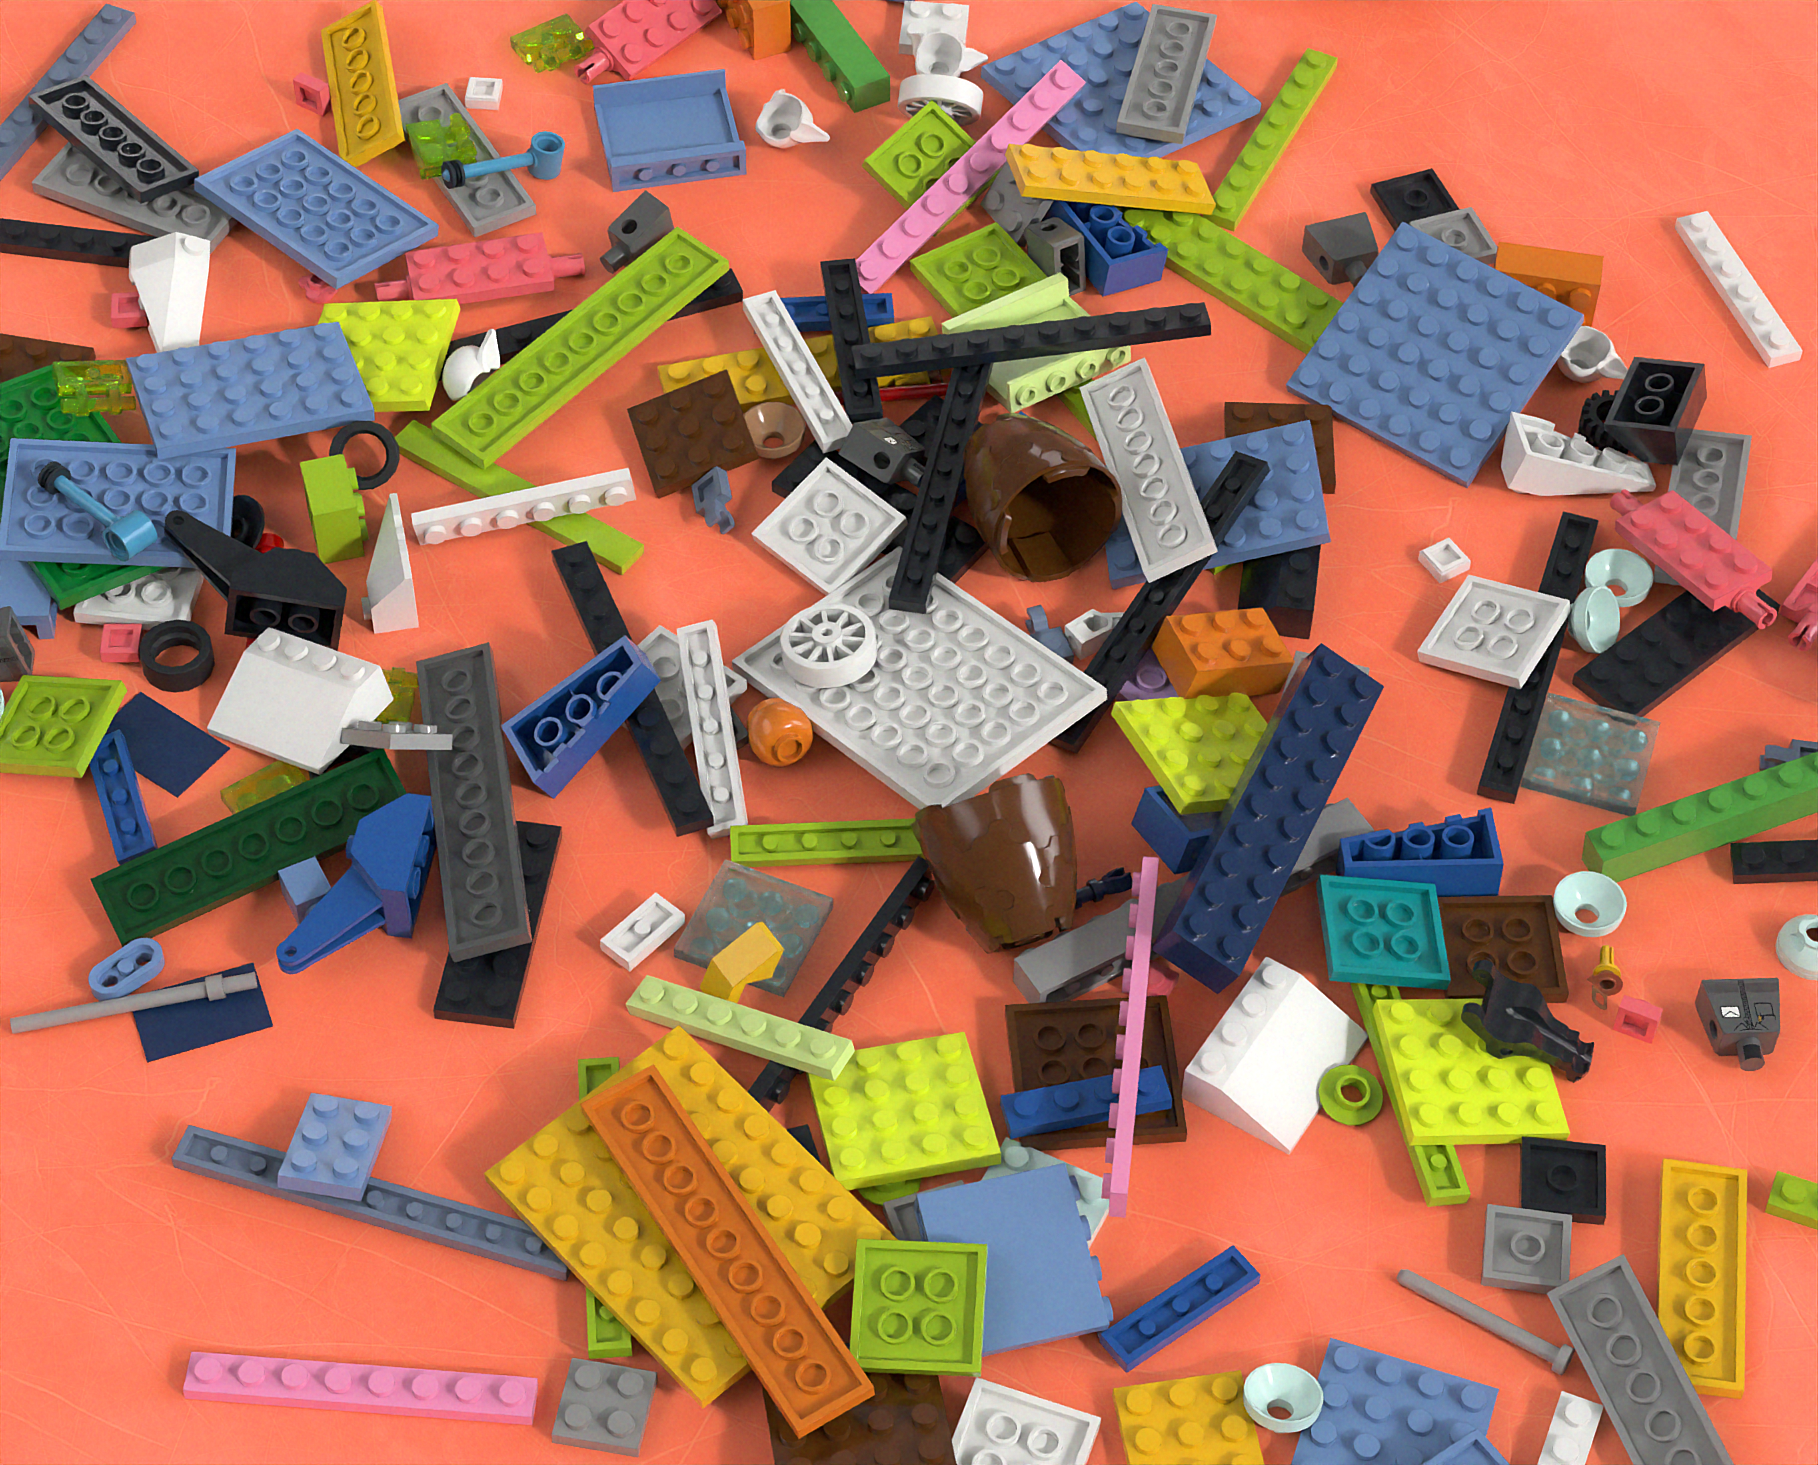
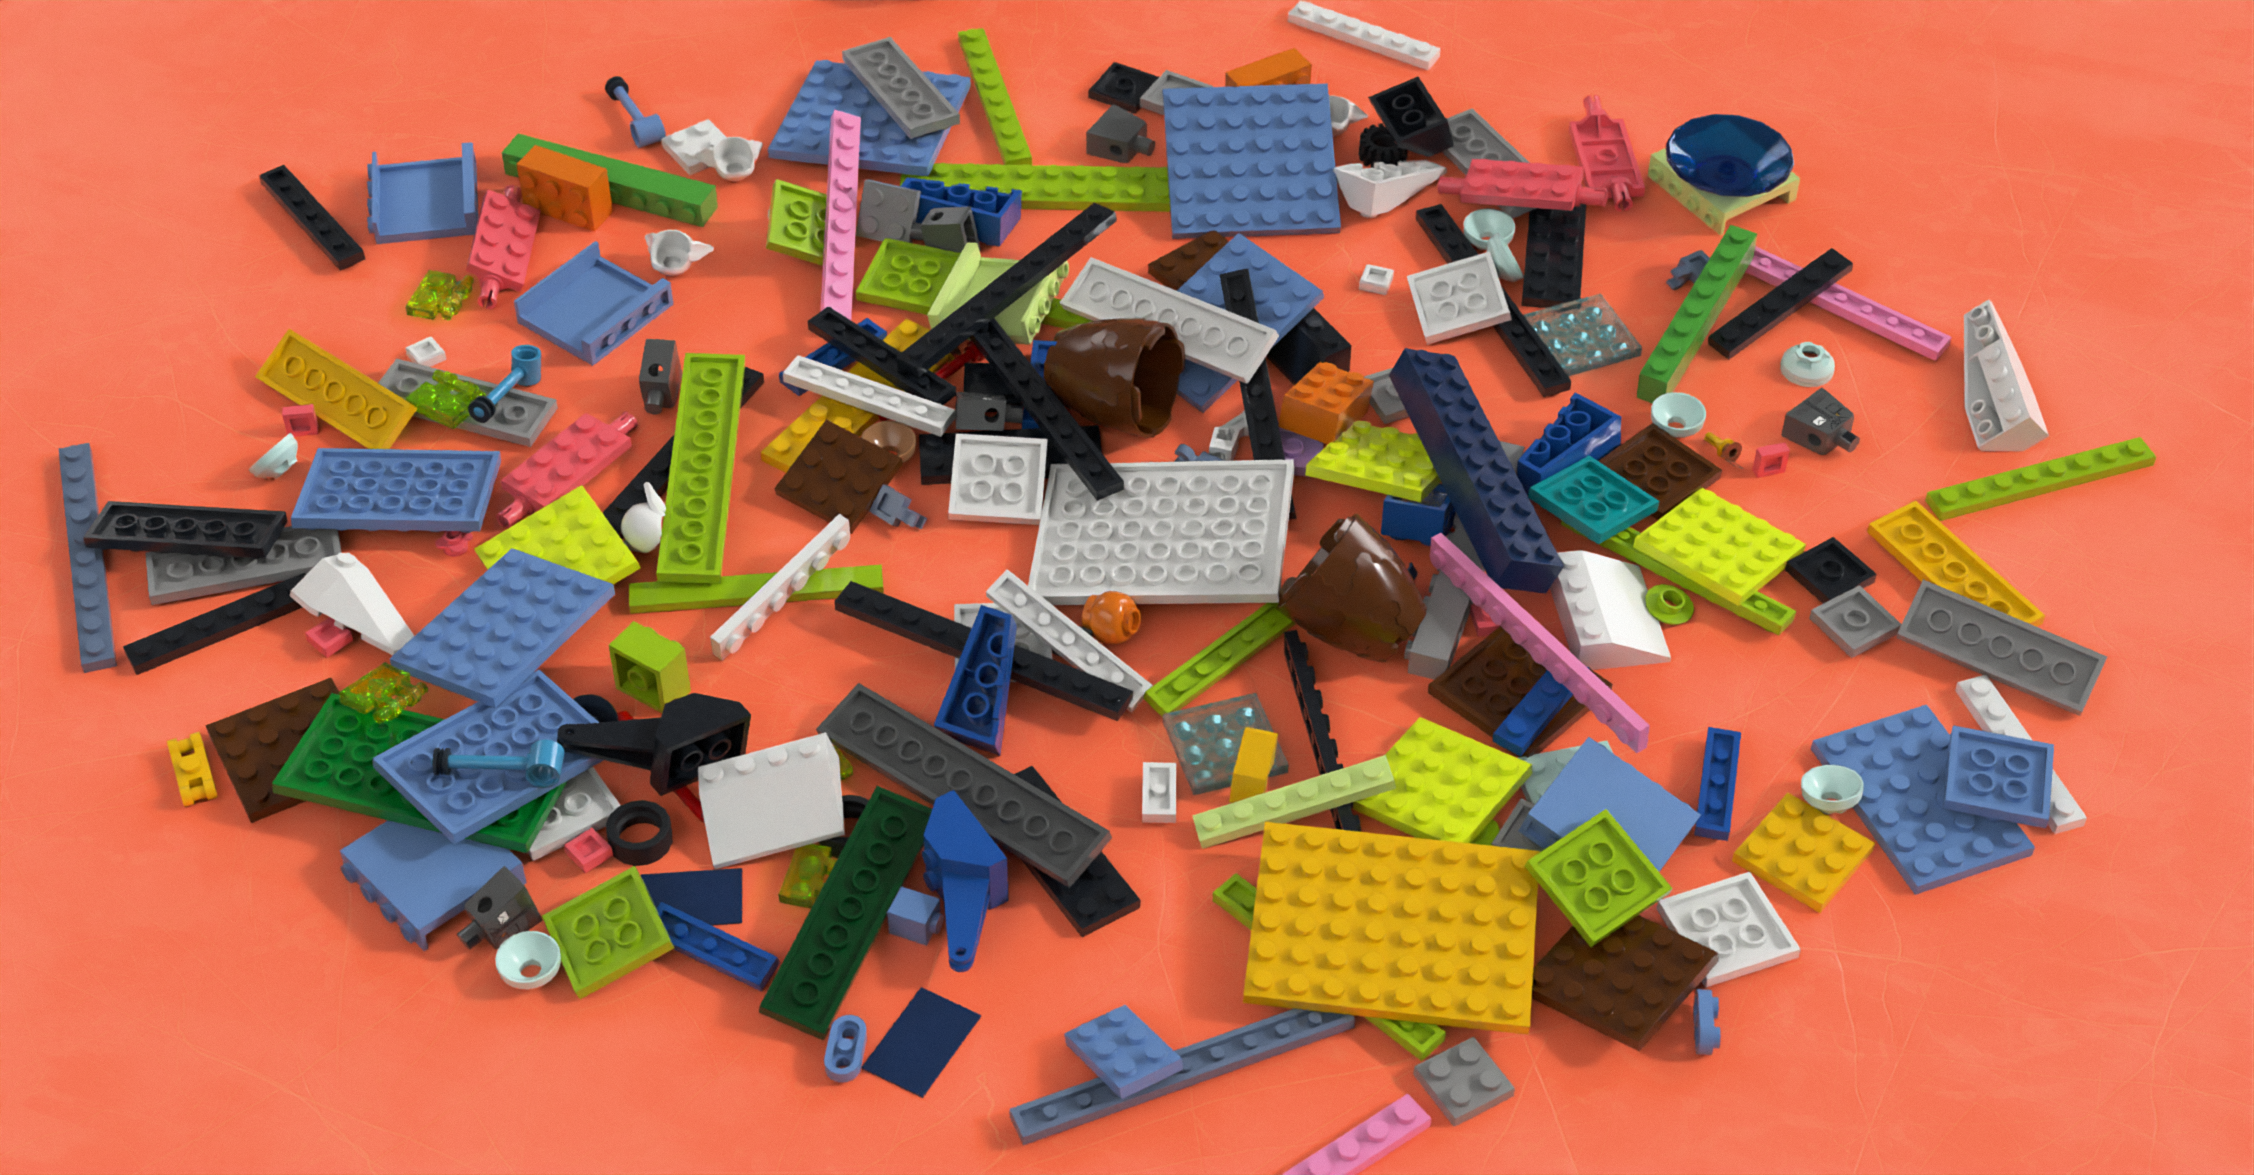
camera: 40 degrees left, 5 degrees down
(213, 987) = (918, 1018): light grey bar -> none
(253, 118) = (277, 459): none -> light aqua piece
(384, 435) = (640, 599): black tyre -> none
(389, 579) = (736, 677): white wedge -> none
(397, 736) = (875, 774): light grey plate -> none
(728, 1252) = (1453, 924): orange plate -> none
(828, 645) = (1091, 542): white wheel -> none
(954, 95) = (756, 184): white wheel -> none
(1109, 179) = (940, 167): yellow plate -> none
(1519, 1023) = (1724, 499): black animal -> none
(1557, 1356) = (1936, 665): light grey bar -> none

